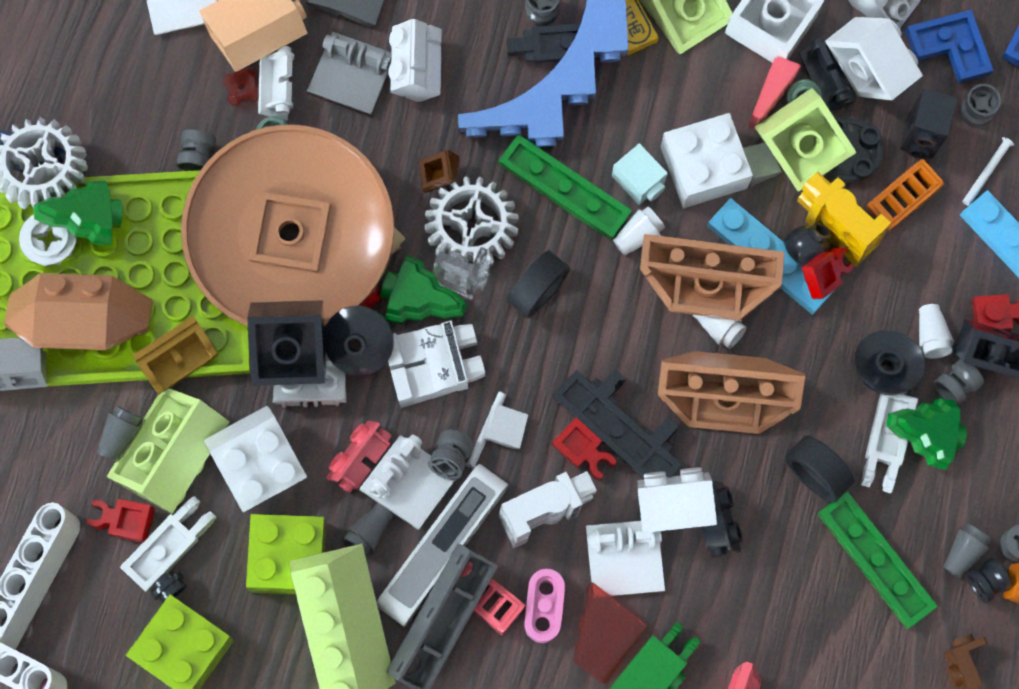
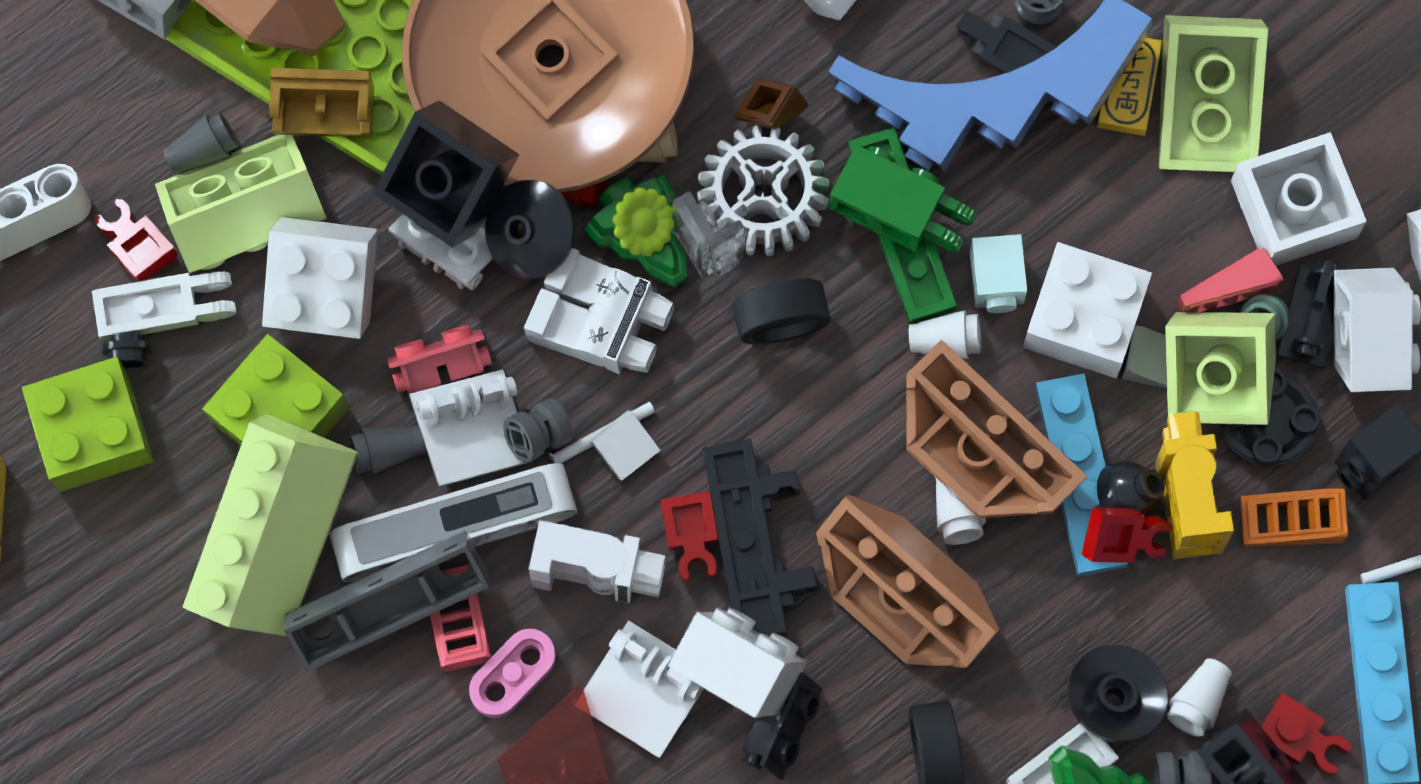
camera: 45 degrees right, 0 degrees up
(421, 289) = (643, 222): none -> lime piece
(555, 173) = (896, 200): none -> green hinge

